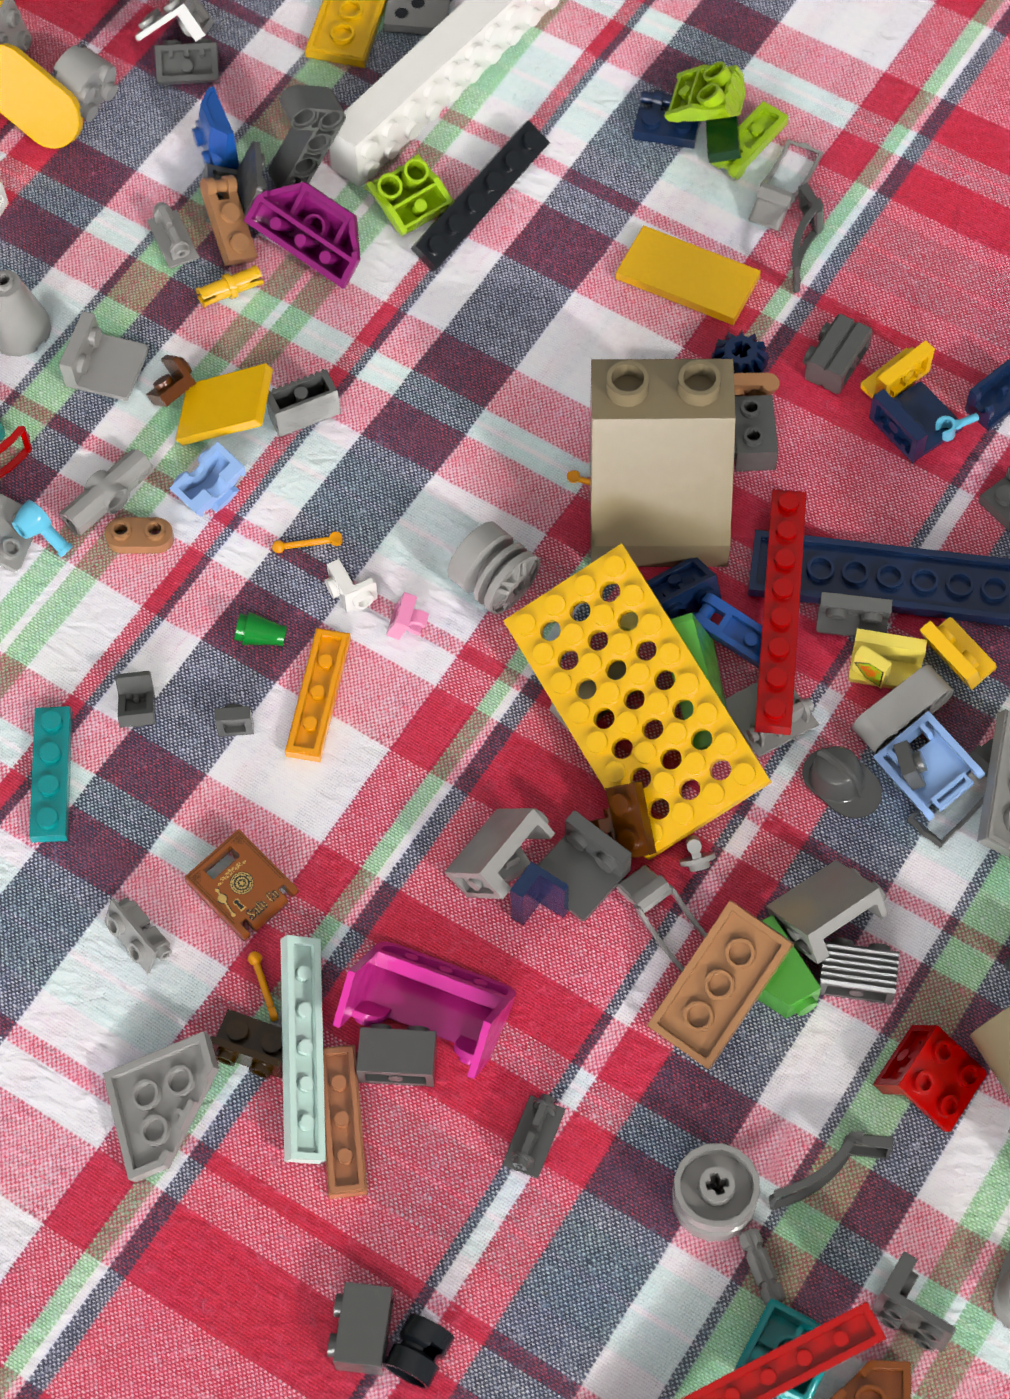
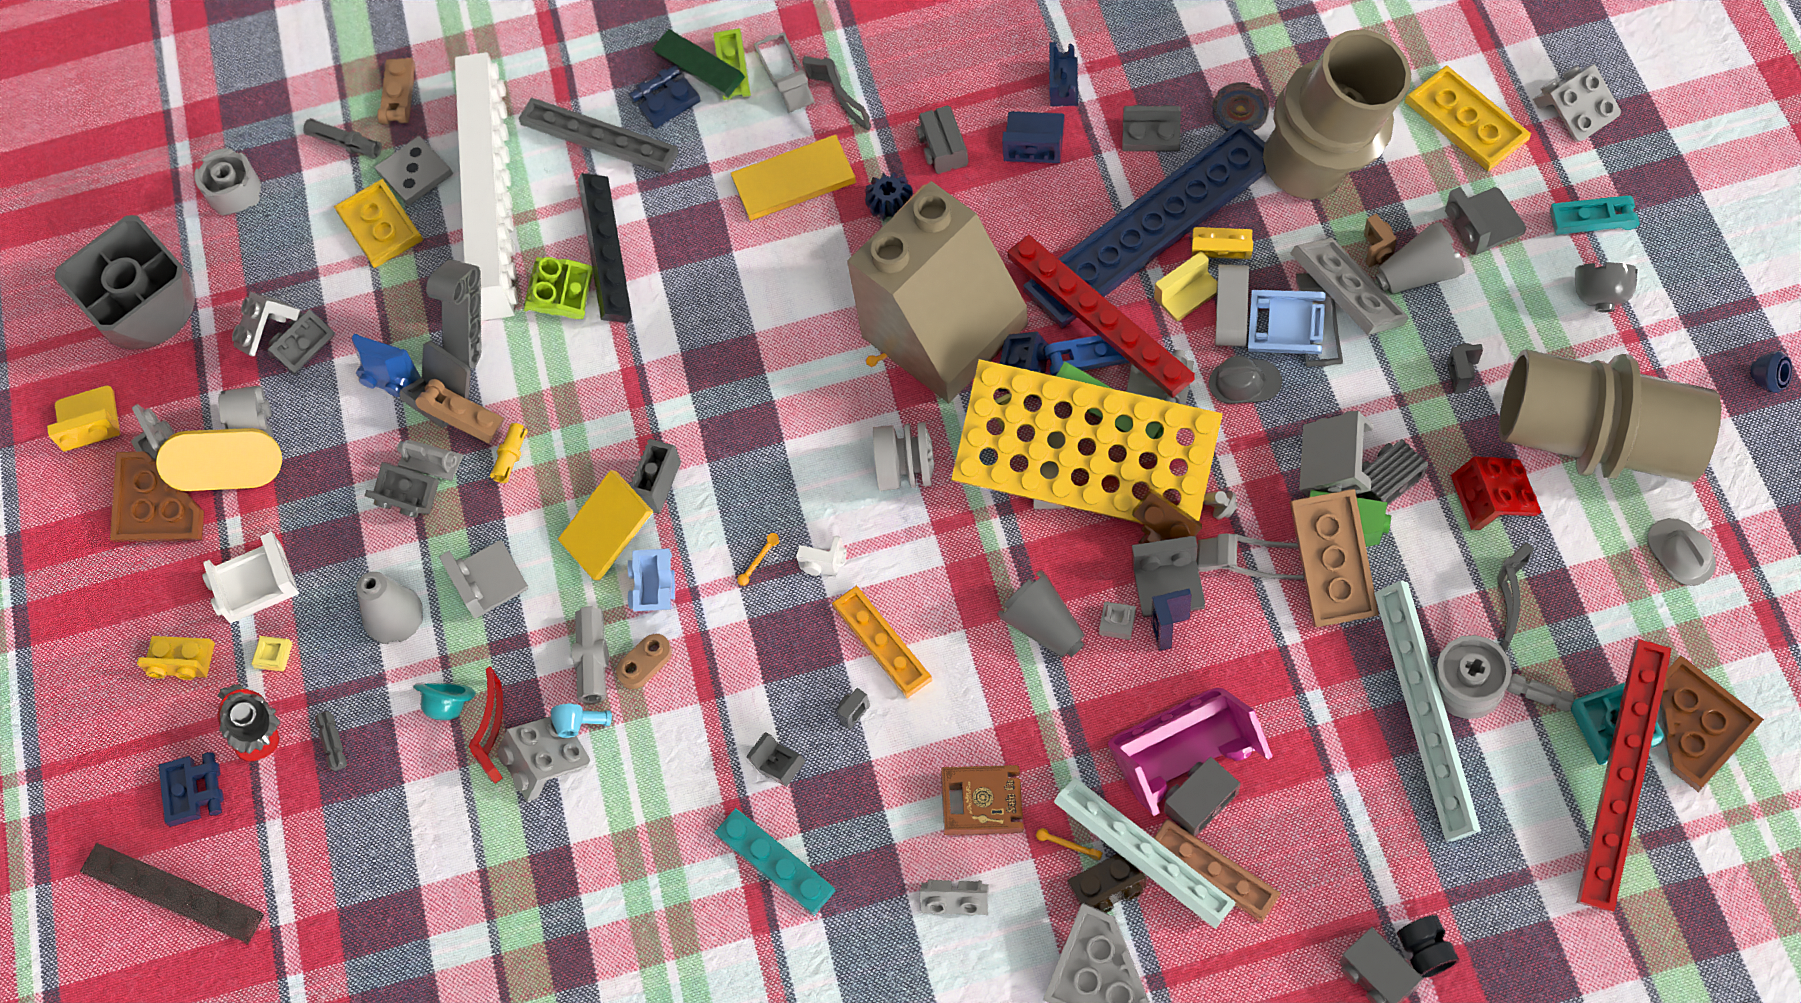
camera: 40 degrees left, 0 degrees up
(126, 242) = (404, 489): none -> dark grey bracket
(171, 386) = (551, 546): reddish brown bracket -> none
(258, 630) = (798, 640): green cone -> none
(309, 228) = (527, 364): magenta wedge -> none
(406, 617) = (879, 540): bright pink tile -> none
(448, 796) = (1044, 617): none -> dark grey cone
(488, 851) = (1113, 617): light grey panel -> none
(534, 1136) = (1331, 757): dark grey hinge -> none
(581, 104) = (599, 135): none -> dark grey plate
(646, 1179) = (1427, 712): none -> light aqua plate
(707, 93) = (678, 56): lime slope -> none
(845, 613) = (1139, 279): dark grey bracket -> none
(871, 666) = (1186, 297): light yellow tile -> none
(899, 1312) = (1629, 623): dark grey bracket -> none
(900, 371) = (991, 118): yellow bracket -> none
(911, 764) = (1279, 328): dark grey plate -> none
(953, 425) = (1061, 116): medium azure hand -> none

